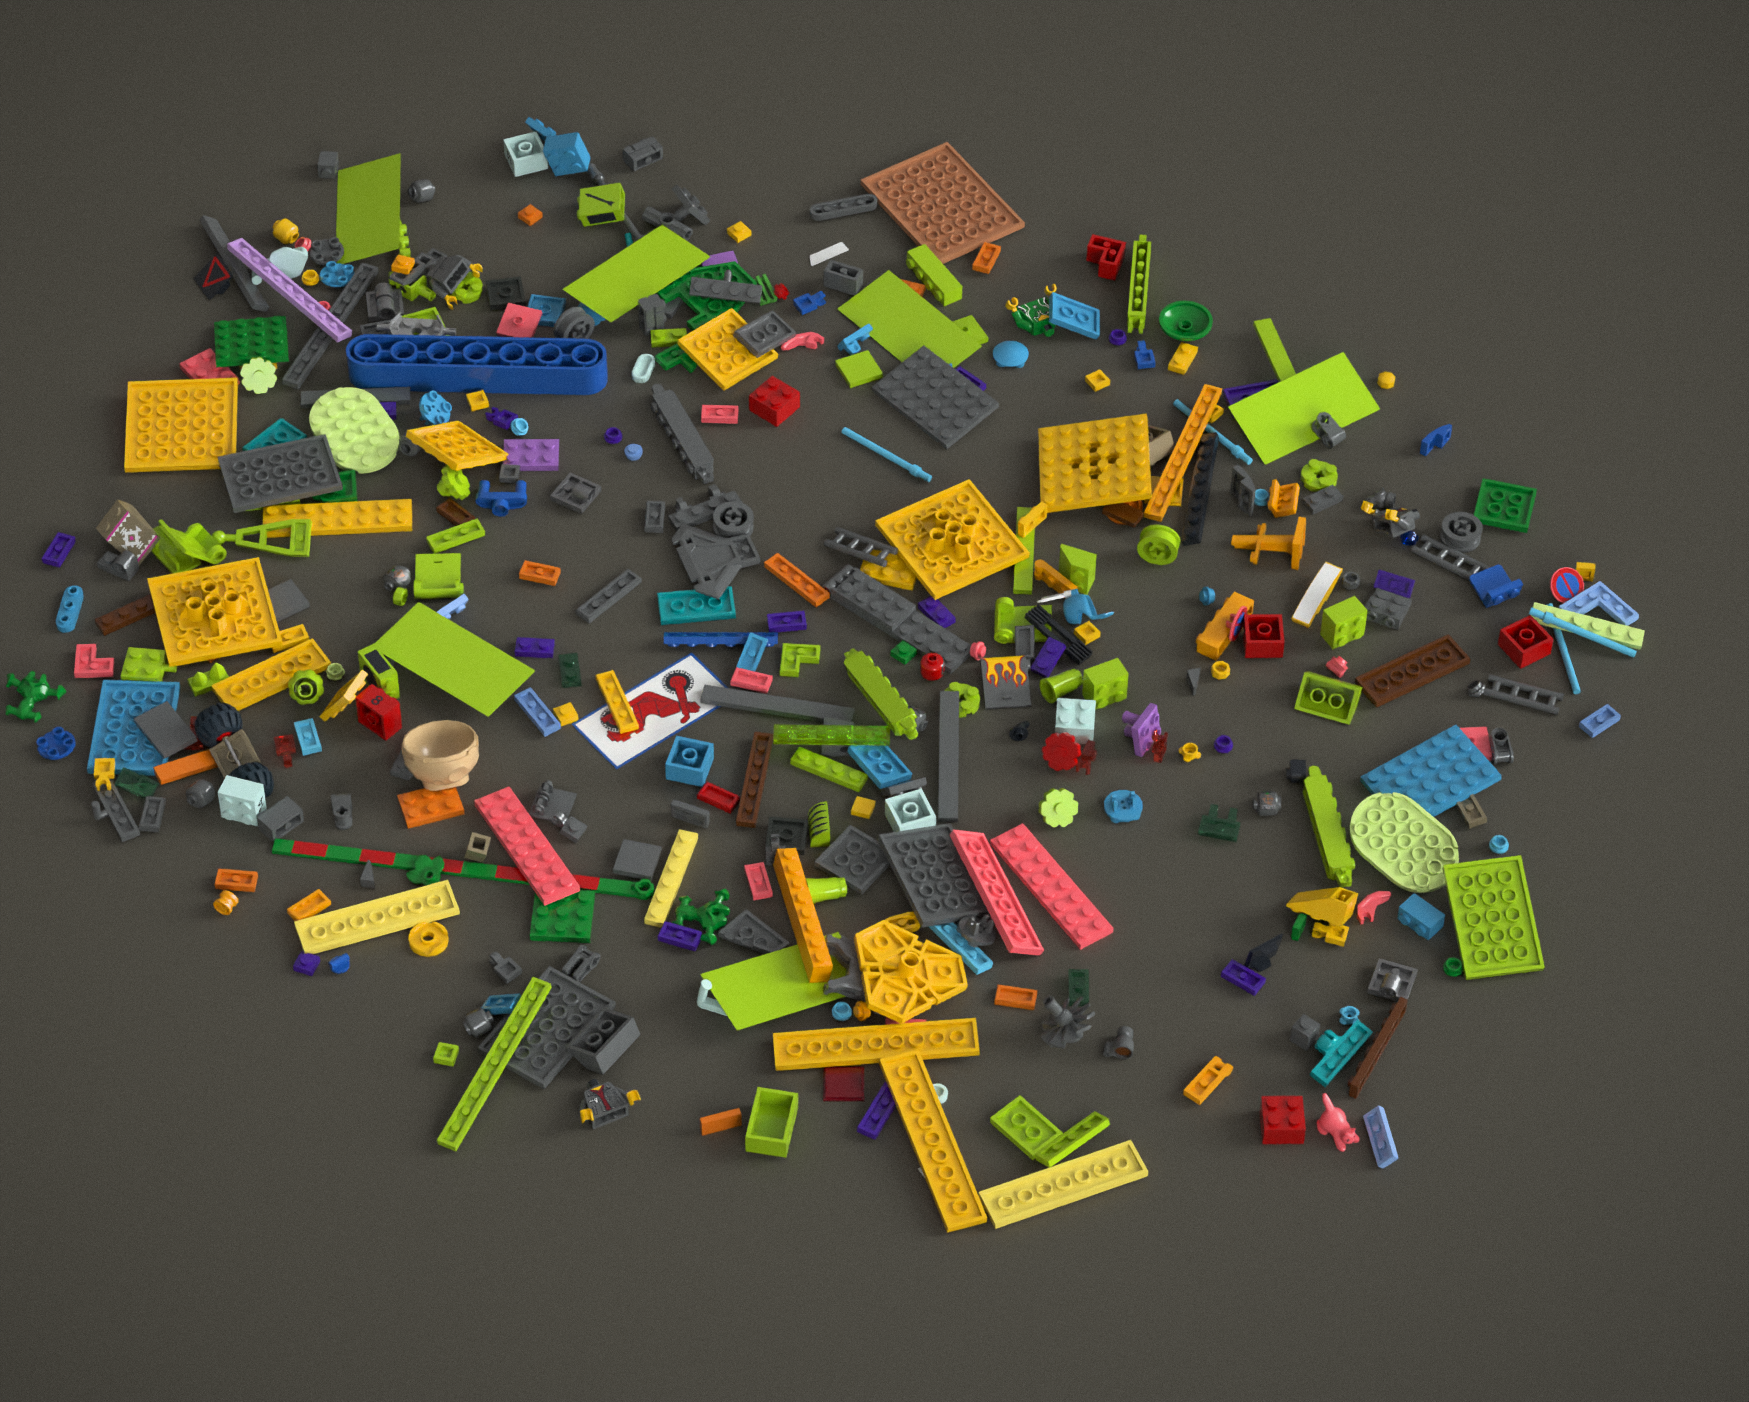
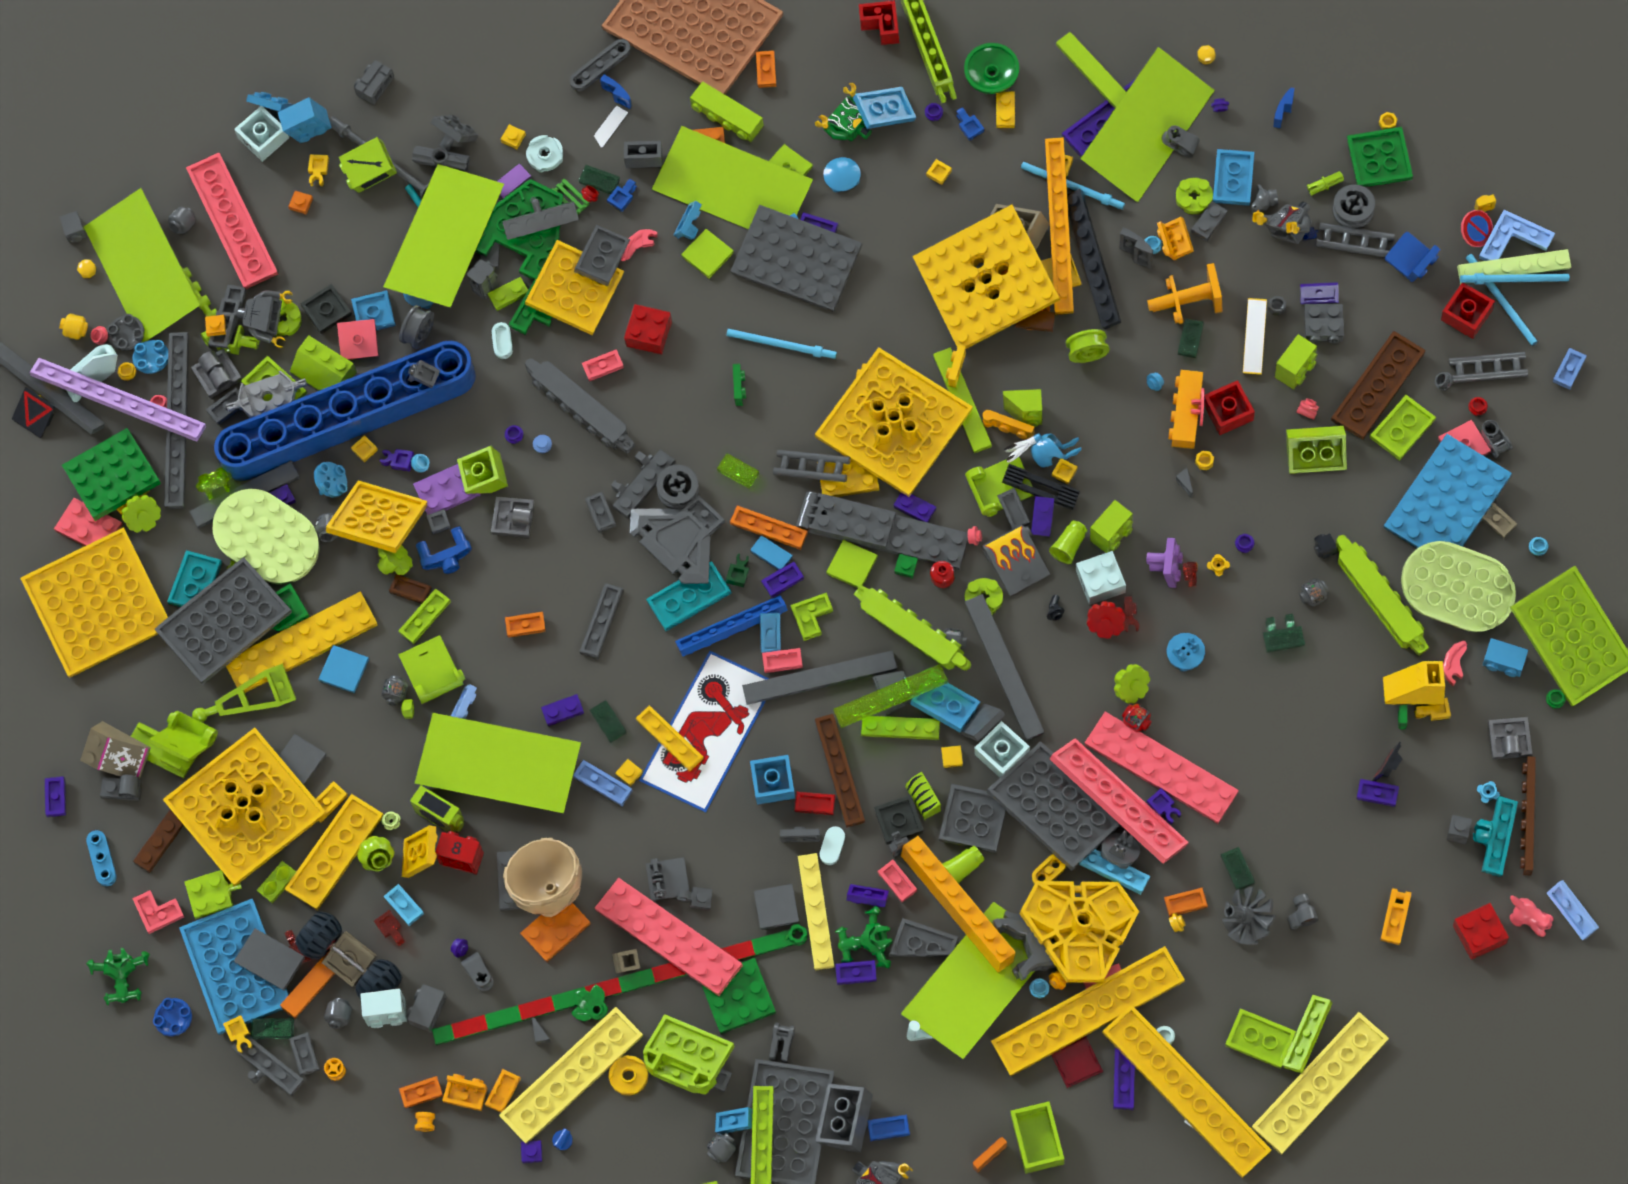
camera: 15 degrees left, 20 degrees up
(171, 834) = (332, 1066): none -> light orange wheel
(275, 893) = (465, 1092): none -> light orange bracket
(321, 198) = (86, 268): none -> yellow tile
(327, 375) = (213, 481): none -> clear neon green plate
(337, 785) = (459, 947): none -> dark purple plate
(362, 549) = (343, 669): none -> dark azure tile
(464, 206) = (232, 221): none -> coral plate
(475, 321) = (320, 365): none -> lime slope
(487, 938) = (686, 1055): none -> lime plate
(557, 351) = (423, 373): none -> dark grey bracket
(559, 194) = (317, 167): none -> yellow plate
(569, 449) = (482, 471): none -> lime slope
(640, 1068) = (888, 1127): none -> blue tile
(715, 834) = (832, 845): none -> light aqua tile
(720, 879) = (867, 895): none -> dark purple plate
(750, 603) = (738, 573): none -> dark green plate
(765, 257) = (548, 162): none -> light aqua plate
(787, 599) = (771, 553): none -> dark azure tile
(794, 531) = (738, 470): none -> clear neon green plate
(795, 284) = (599, 179): none -> clear green plate
(832, 464) = (739, 391): none -> green plate
(846, 227) = (619, 94): none -> blue slope
(855, 633) = (851, 564): none -> lime tile
(998, 1007) = (1177, 922): none -> yellow plate
(1036, 913) = (1162, 804): none -> dark purple plate
(1049, 837) = (1137, 717): none -> red head
(1257, 576) = (1190, 338): none -> clear green plate
(1362, 474) = (1233, 177): none -> dark azure plate
(1378, 418) = (1220, 105): none -> dark purple plate
(1418, 710) = (1402, 427): none -> lime plate
(1443, 507) = (1325, 183): none -> lime axle
(1498, 719) = (1478, 406): none -> red plate
(1527, 480) = (1387, 121): none -> yellow tile

